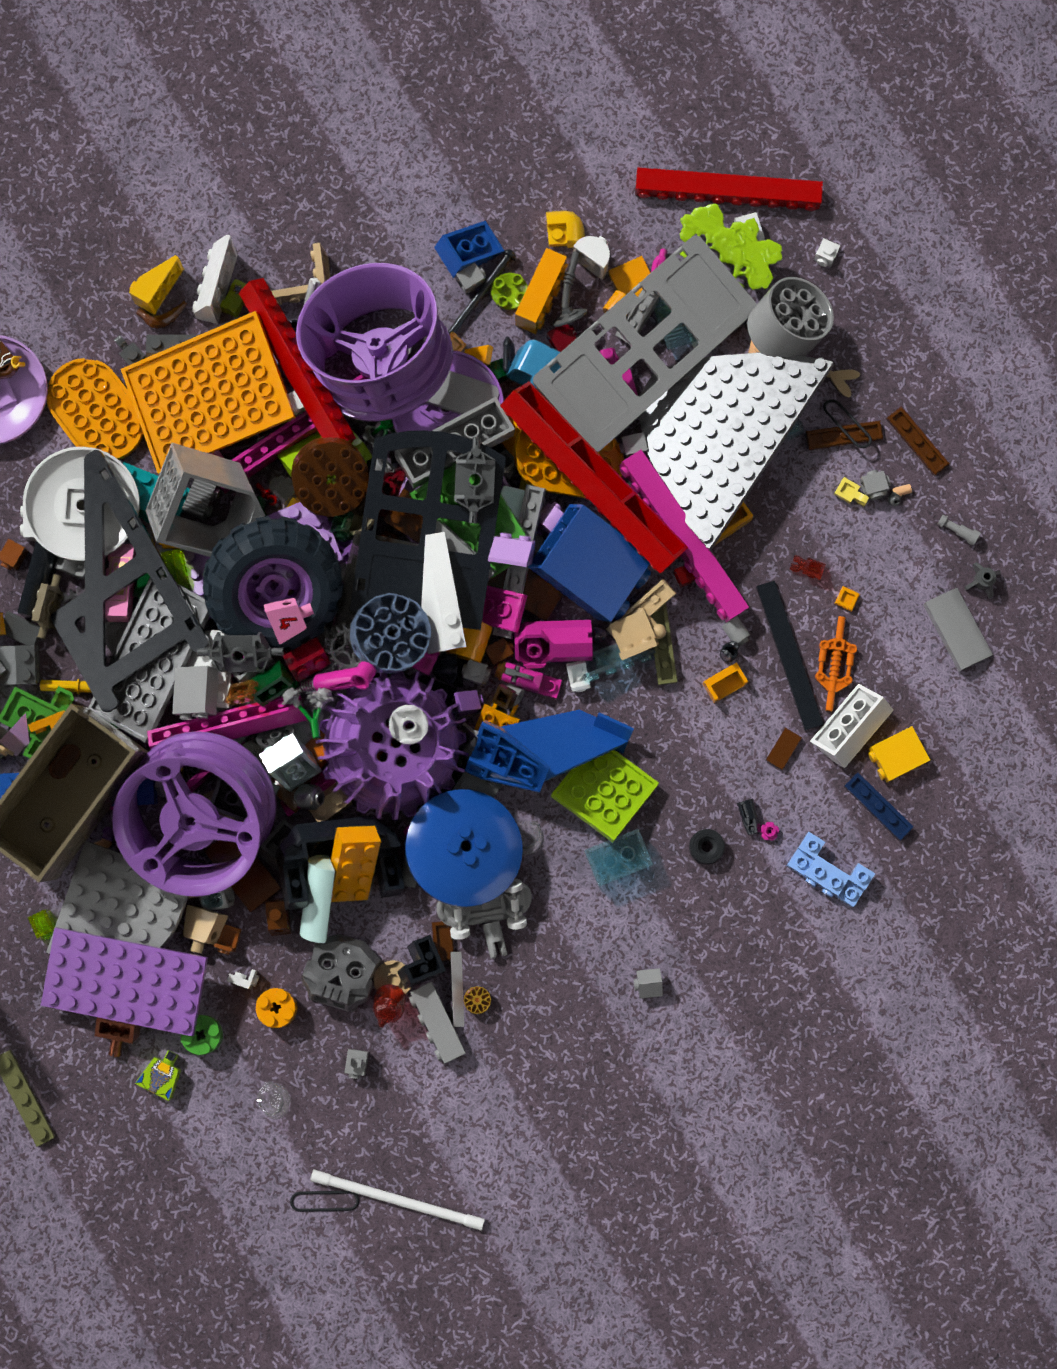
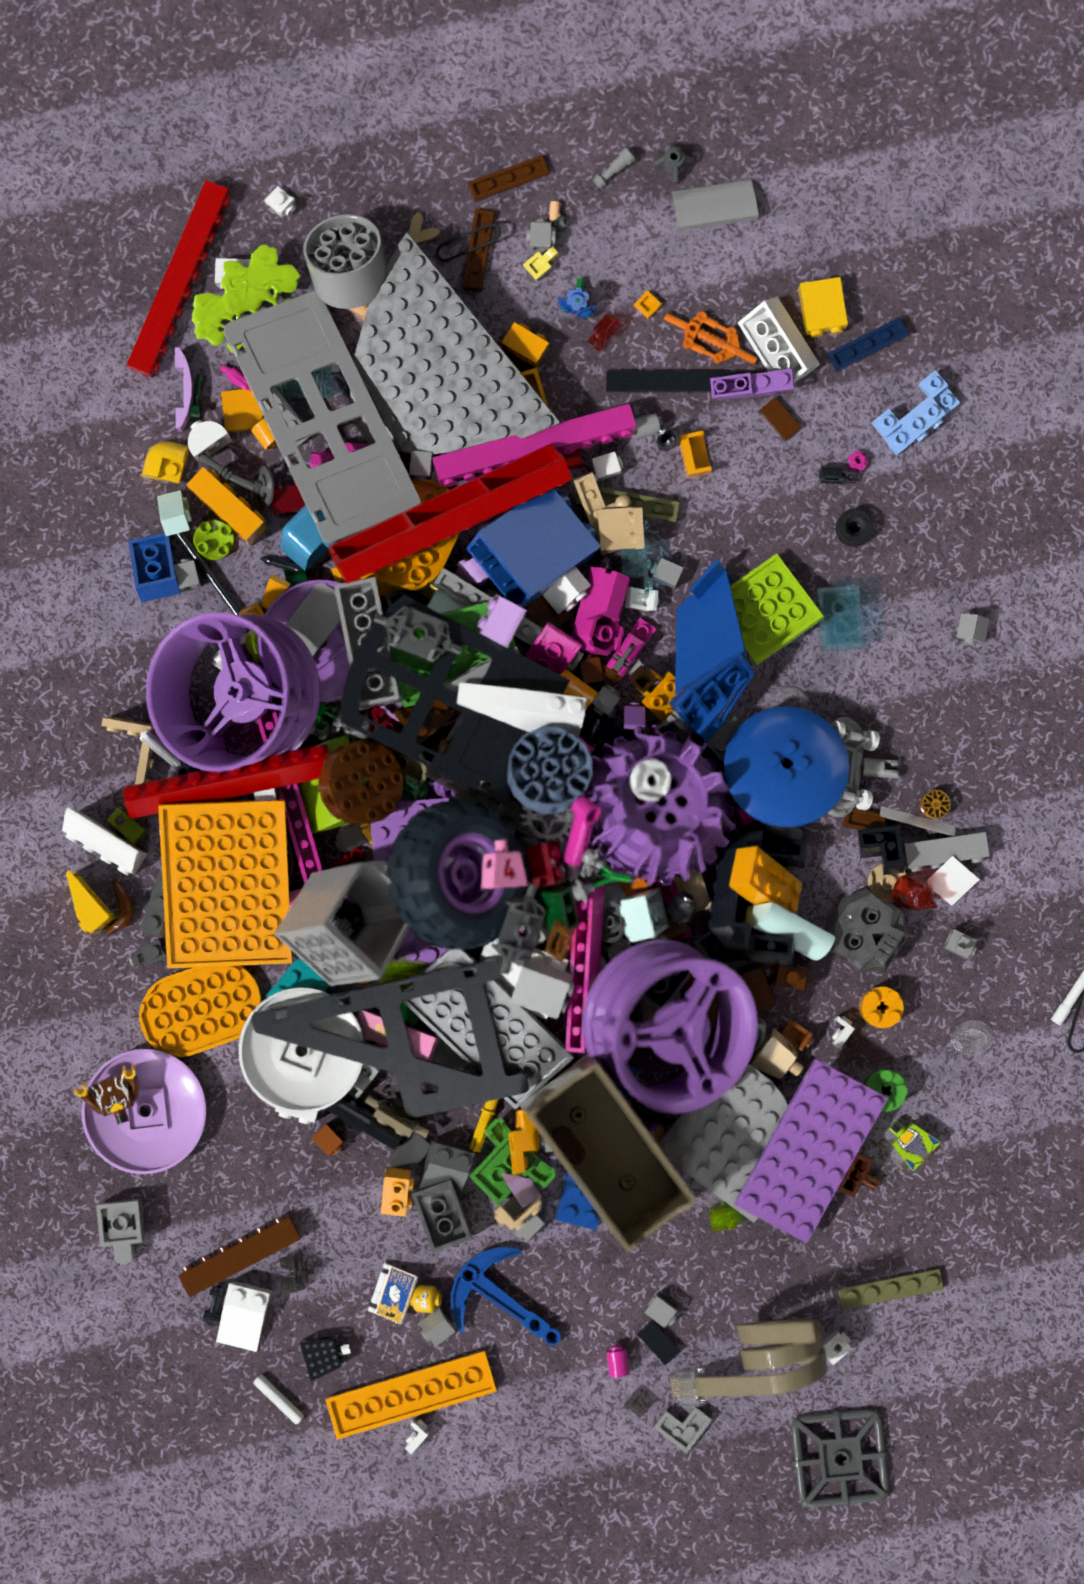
camera: 75 degrees left, 5 degrees up
(412, 1037) = (952, 880): none -> white sticker
(520, 248) = (174, 512): none -> light aqua brick
(562, 605) = (567, 590): none -> white brick
(609, 229) = (183, 414): none -> lavender slope
(609, 691) = (666, 572): none -> light grey brick
(619, 239) = (195, 408): none -> dark green piece
(688, 608) = (607, 466): none -> white brick
(772, 501) = (525, 344): none -> light orange brick
(804, 712) = (752, 385): none -> medium lavender slope
(828, 532) = (577, 299): none -> blue plant

